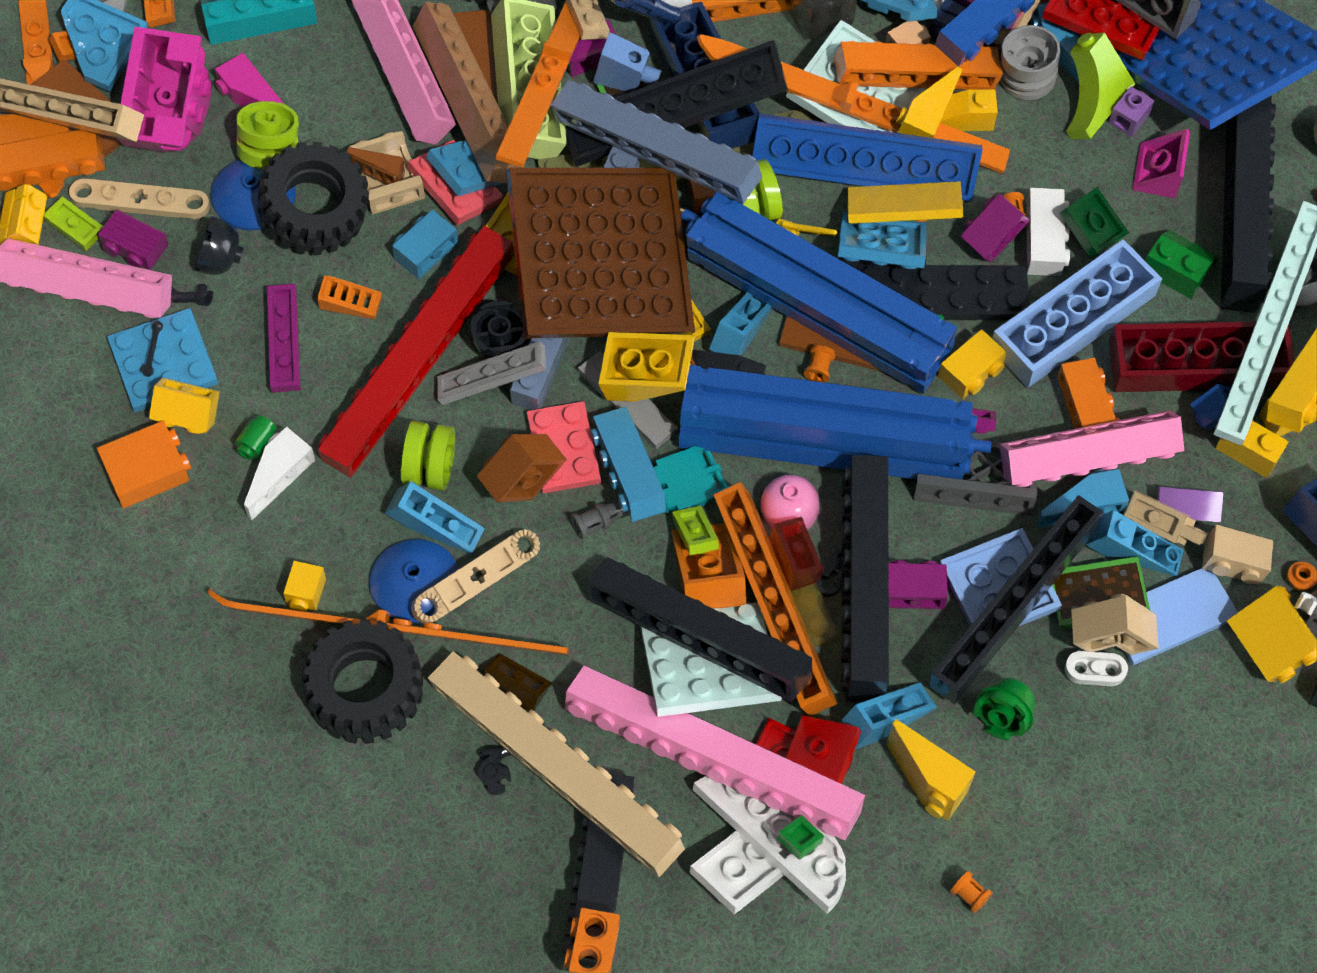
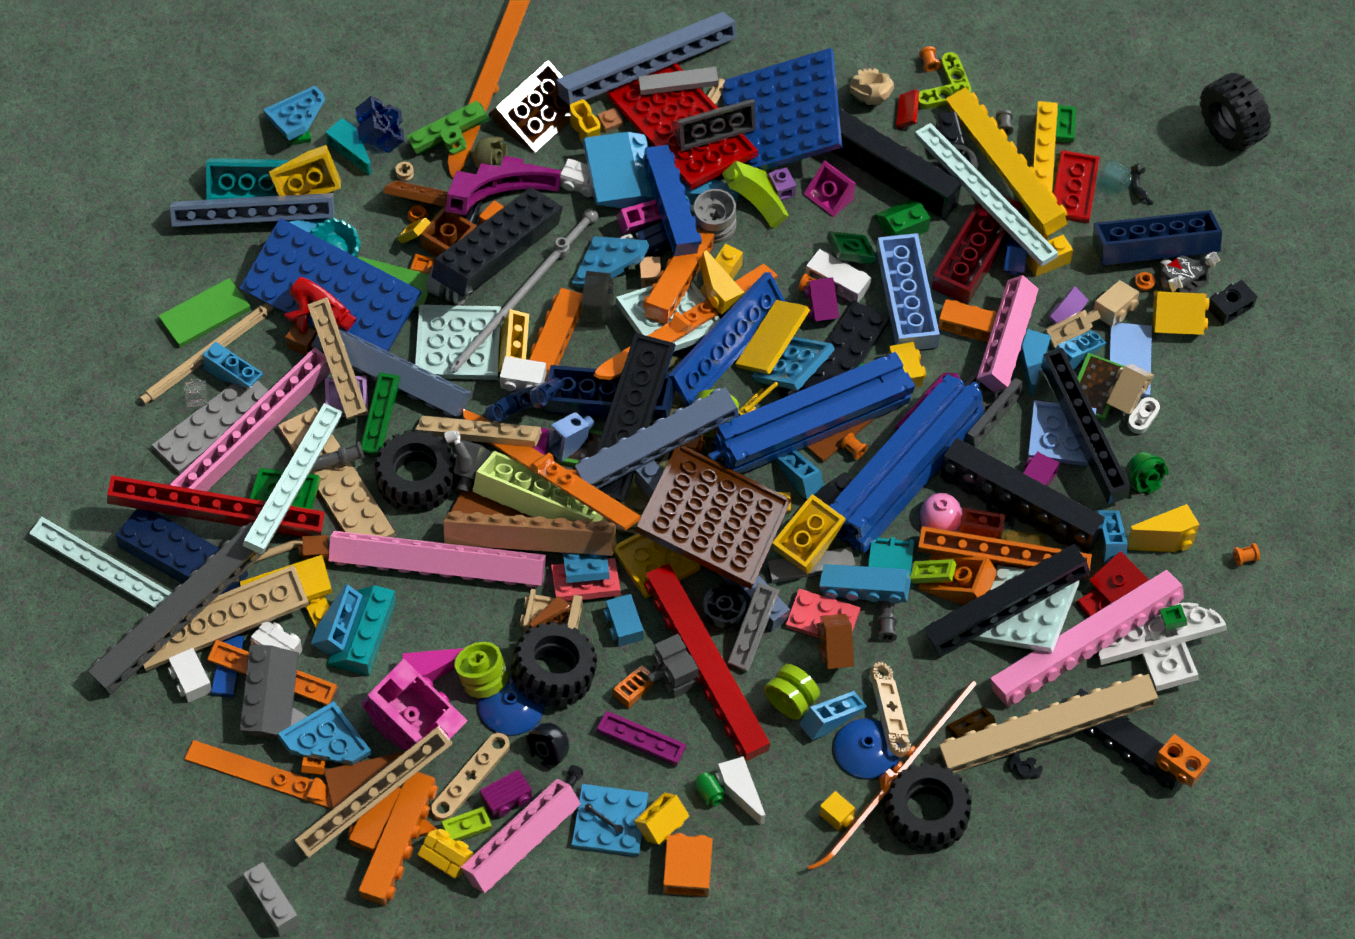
camera: 60 degrees left, 5 degrees down
(385, 319) = (675, 666): none -> dark grey brick

